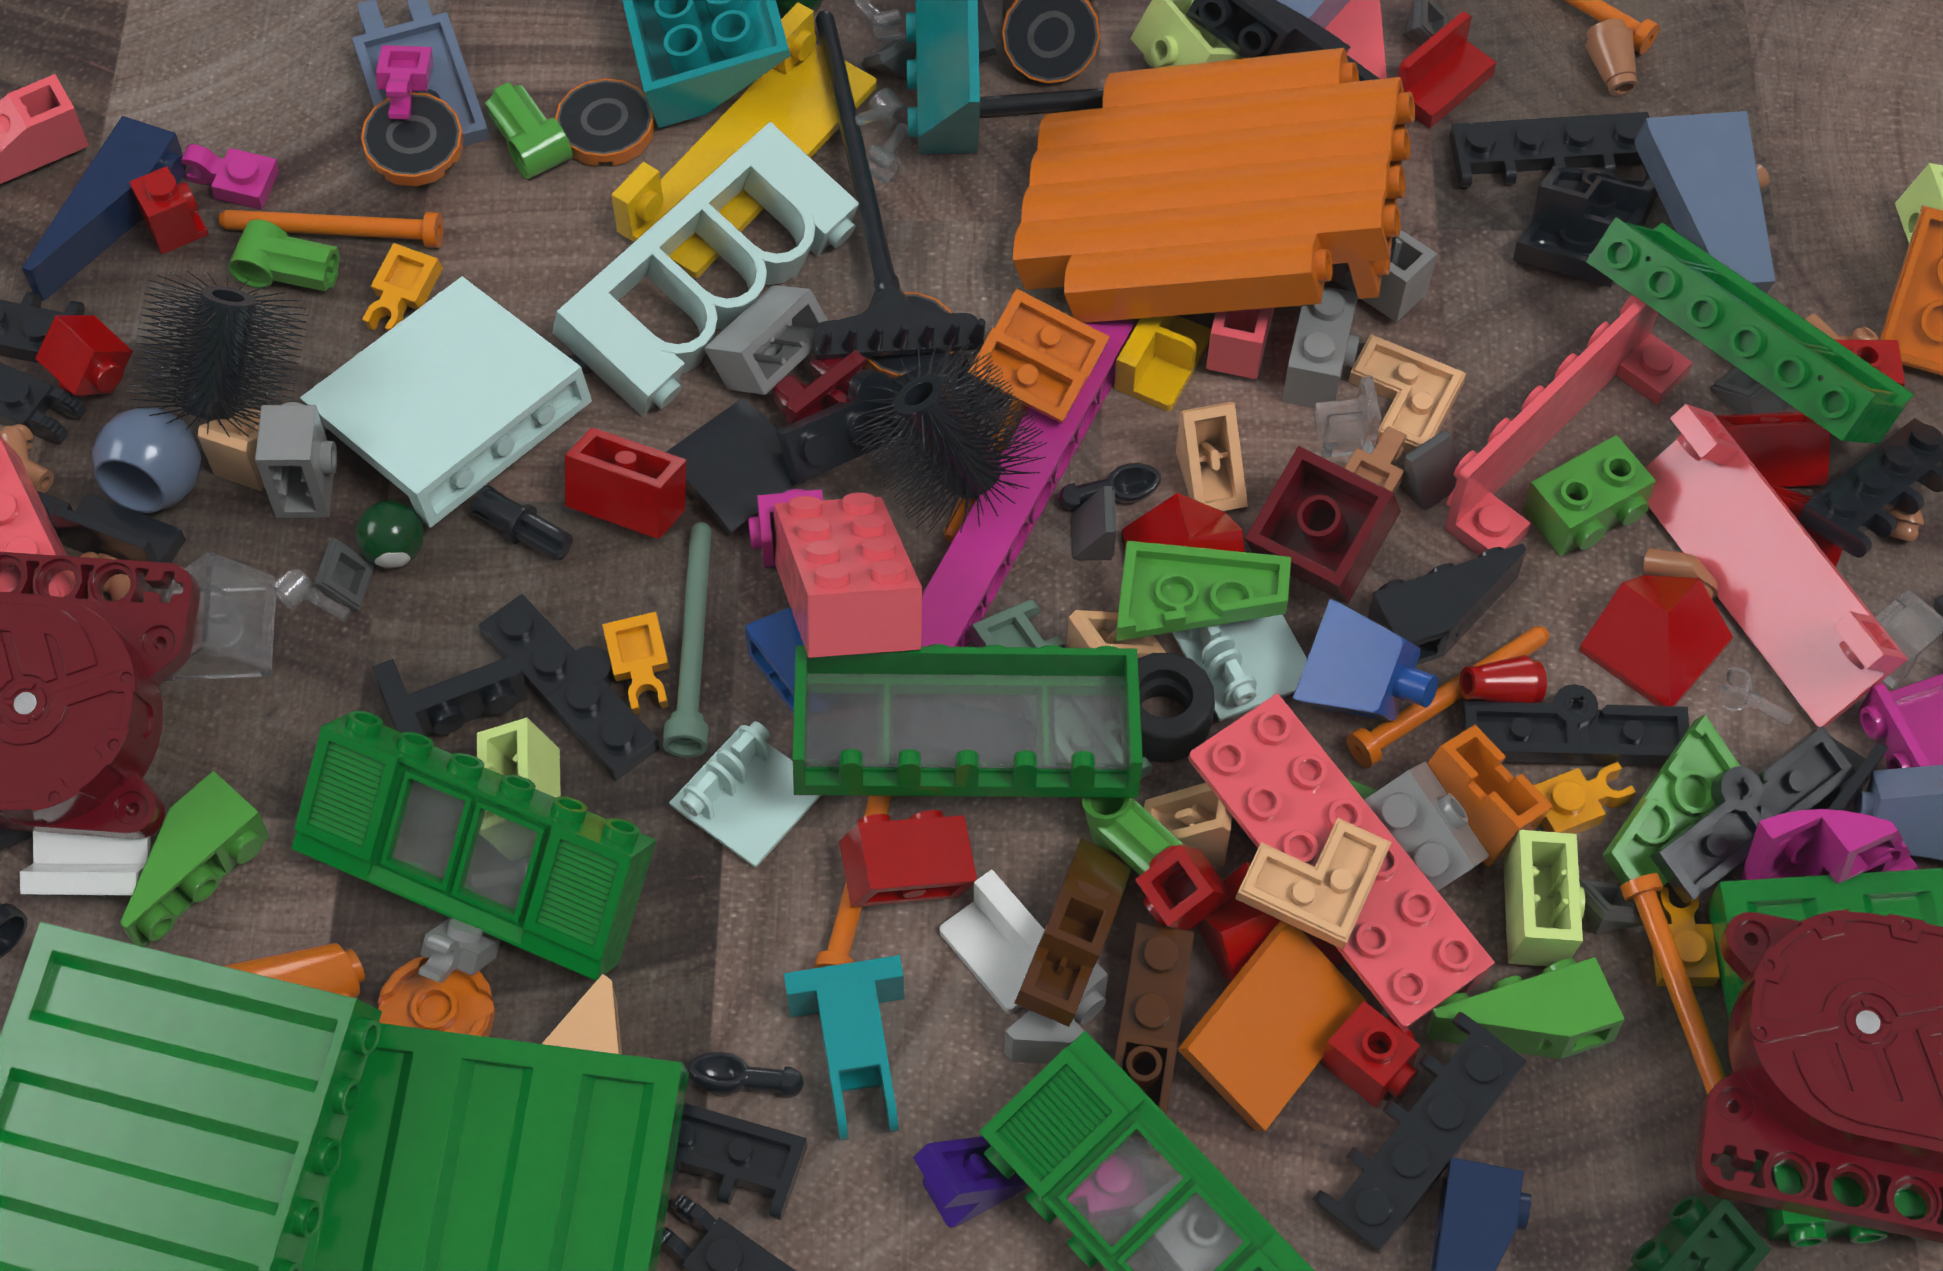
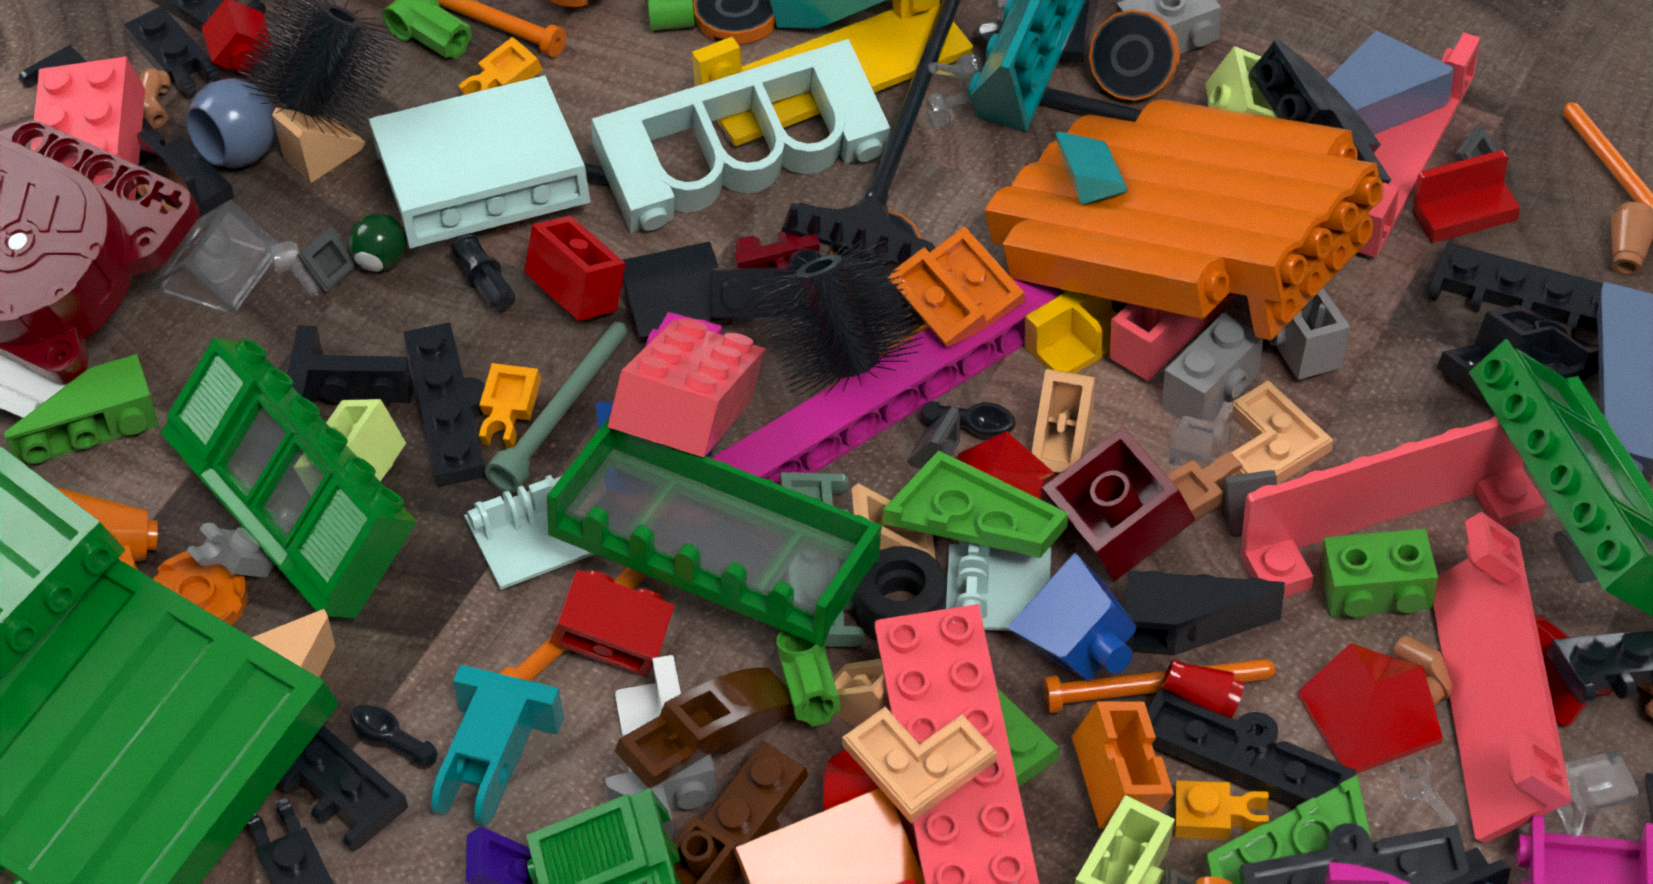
camera: 30 degrees right, 10 degrees down
(295, 460) = (336, 161): light grey brick -> none
(766, 339) = (751, 203): light grey brick -> none
(1105, 179) = (1089, 167): none -> teal slope
(1182, 887) = (811, 725): red brick -> none
(1428, 825) = (1053, 767): light grey brick -> none
(1782, 446) = (1573, 598): red panel -> none

